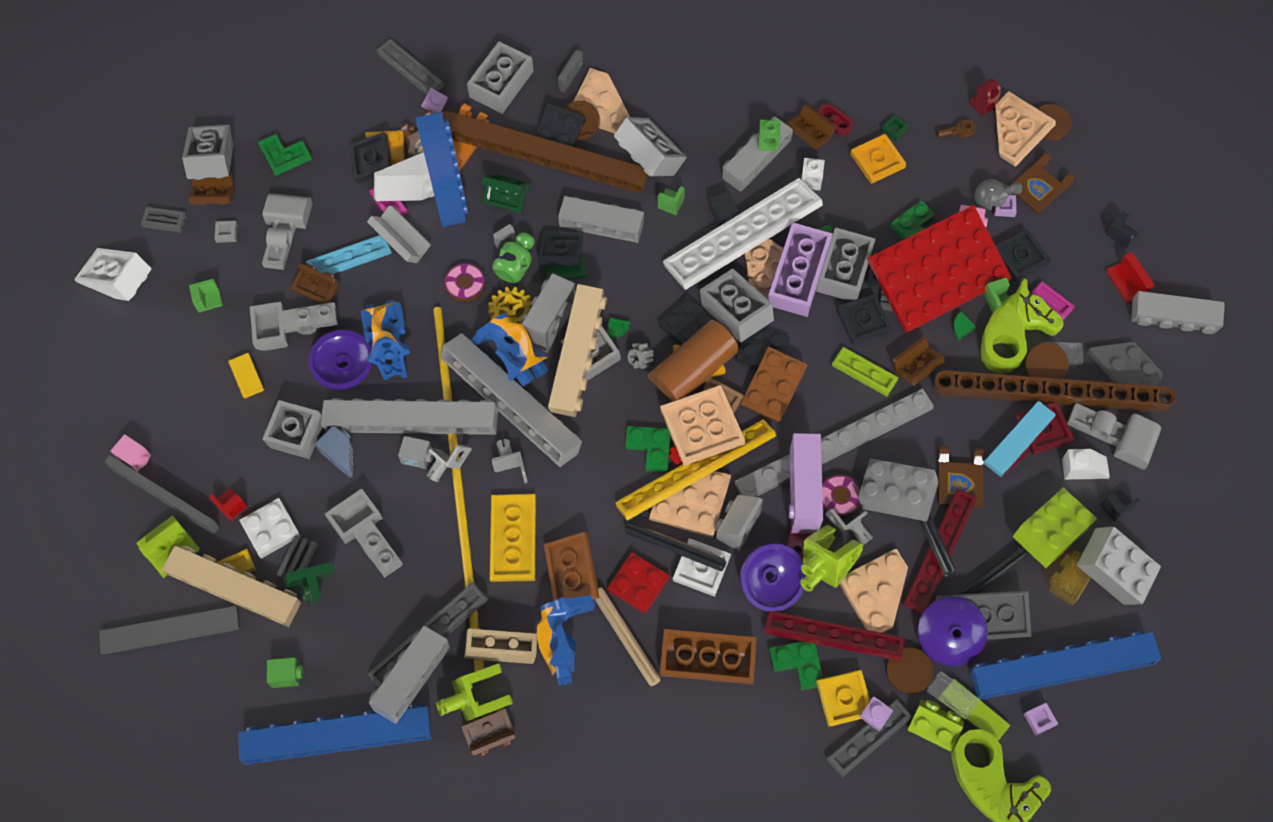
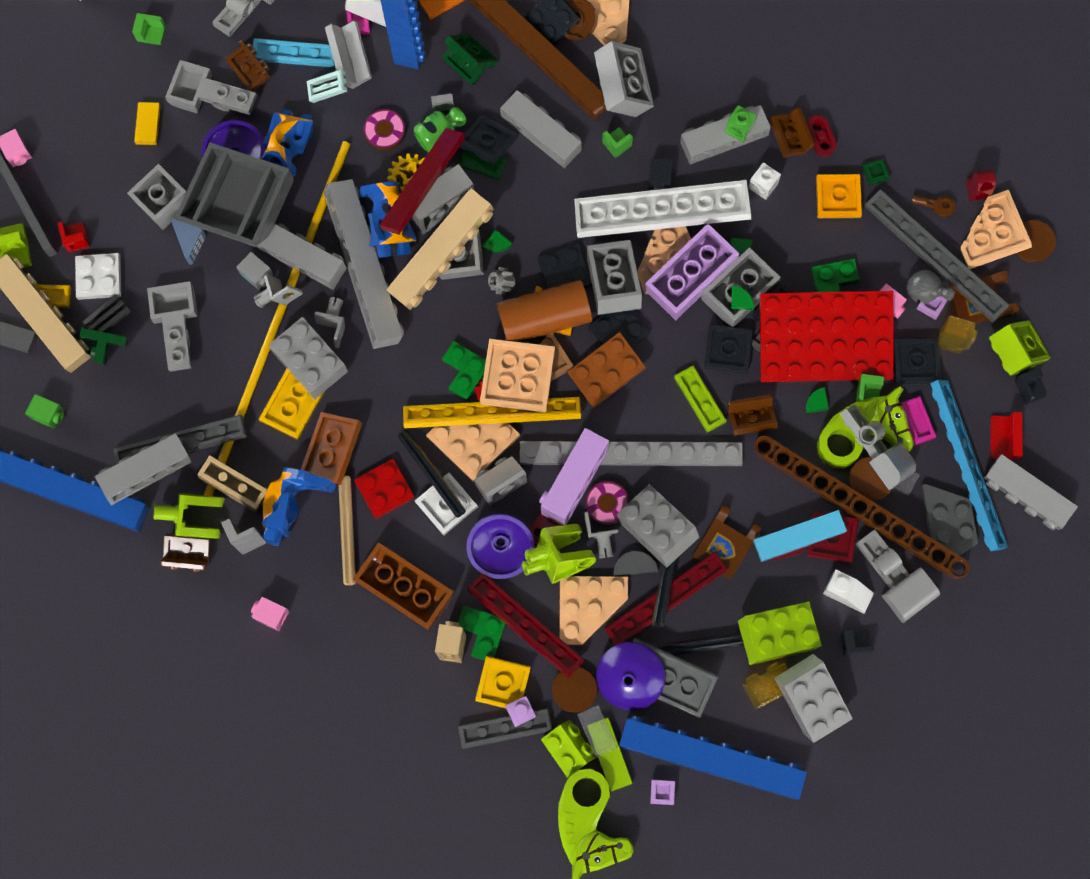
camera: 30 degrees right, 10 degrees up
(367, 390) = (235, 195): none -> dark grey slope
(403, 266) = (329, 93): none -> light aqua tile
(508, 501) = (308, 358): none -> light grey brick
(529, 302) = (422, 181): none -> dark red tile
(539, 691) = (243, 541): none -> light grey panel
(597, 747) = (269, 613): none -> bright pink brick
(783, 682) = (450, 642): none -> tan brick
(855, 270) = (741, 299): none -> green tile
(895, 534) = (634, 563): none -> dark grey tile
(985, 166) = (936, 256): none -> dark grey plate
(1042, 217) = (956, 335): none -> clear yellow brick
(1057, 338) = (890, 464): none -> light grey plate
(1093, 206) = (1019, 347): none -> lime slope
(1121, 321) = (968, 463): none -> dark azure plate

